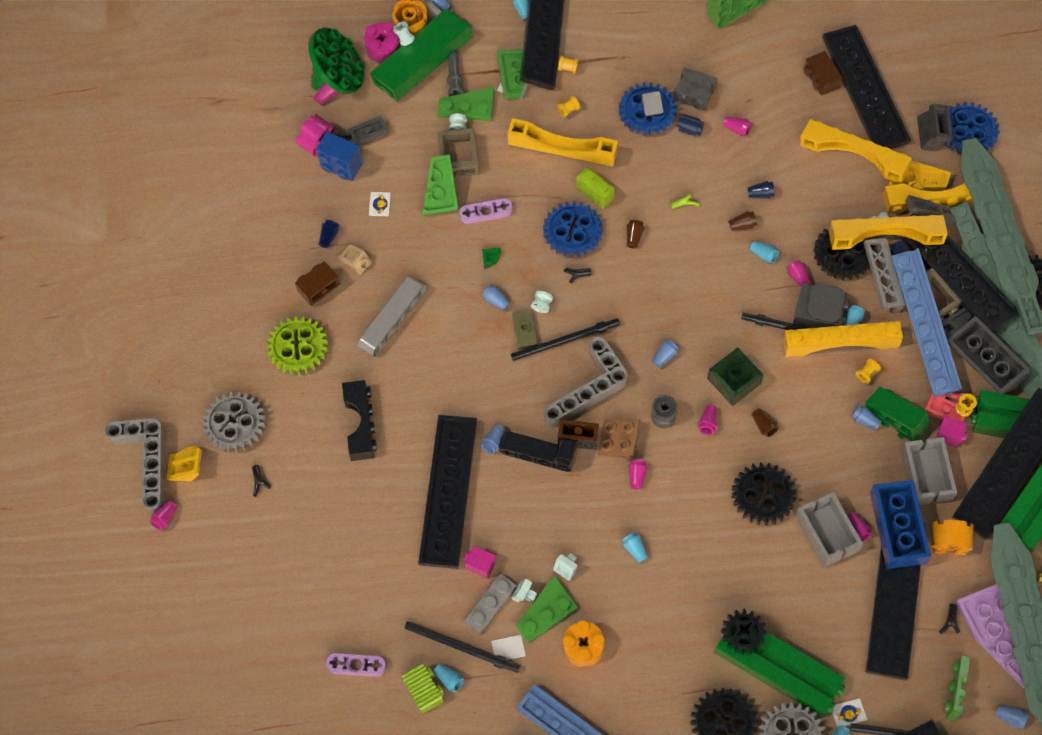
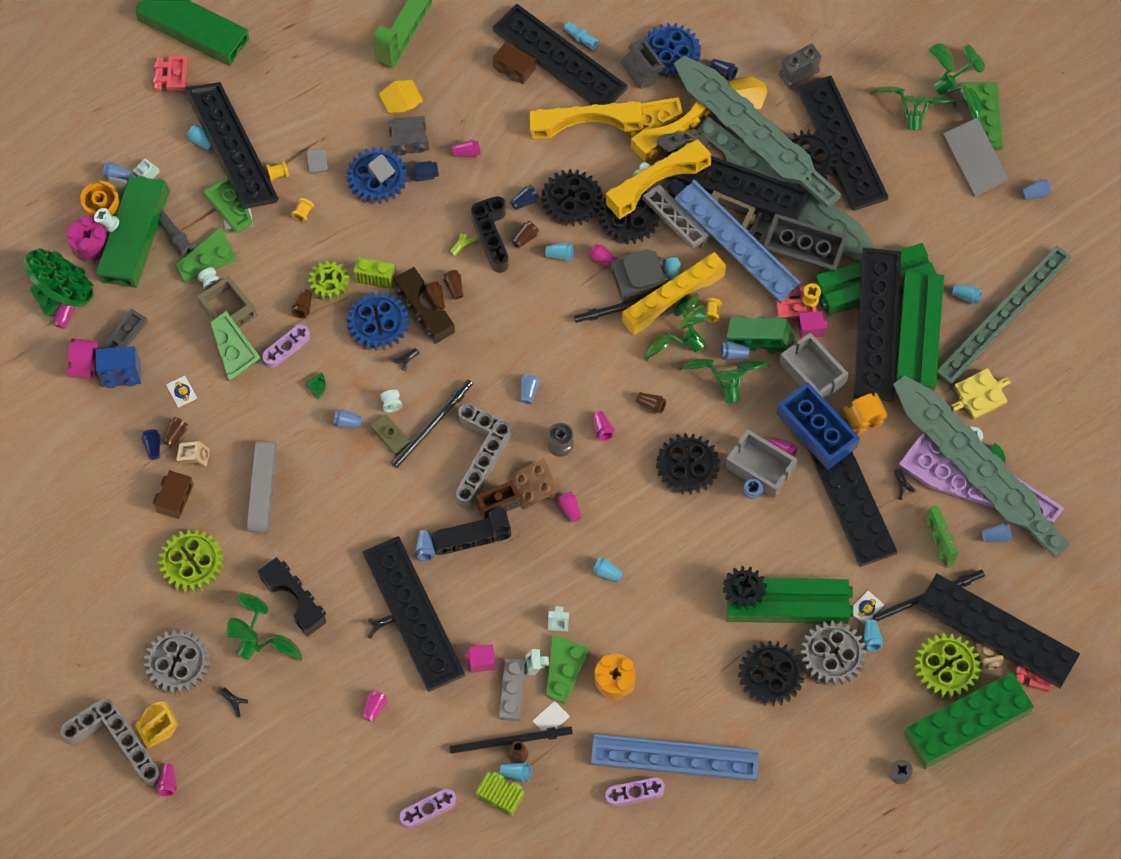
camera: 35 degrees left, 0 degrees up
(291, 425) = (239, 629): none -> green plant
(352, 232) = (174, 431): none -> reddish brown cone
(367, 550) = (374, 705): none -> dark pink cone
(414, 483) = (378, 623): none -> black bar
(462, 665) = (518, 756): none -> reddish brown cone
(464, 11) = (146, 169): none -> light aqua tile
(520, 183) = (302, 305): none -> reddish brown cone
(552, 176) = (328, 280): none -> lime gear
(594, 150) = (290, 255): yellow arch -> none
(606, 72) = (317, 160): none -> light grey slope
(620, 256) = (436, 323): none -> dark brown arch
(656, 231) = (454, 284): none -> reddish brown cone
(709, 54) = (400, 96): none -> yellow slope
(711, 208) = (492, 236): none -> black beam
(735, 376) = (603, 375): clear green brick -> none
(802, 210) = (571, 197): none -> black gear
(807, 543) = (753, 484): none -> medium blue cone
(834, 385) = (691, 337): none -> green plant
(842, 437) = (730, 388): none -> green plant
(896, 78) = (581, 35): none -> medium azure pin
(1007, 168) = (725, 69): none -> dark blue cone
(1021, 198) = (752, 89): none -> yellow slope

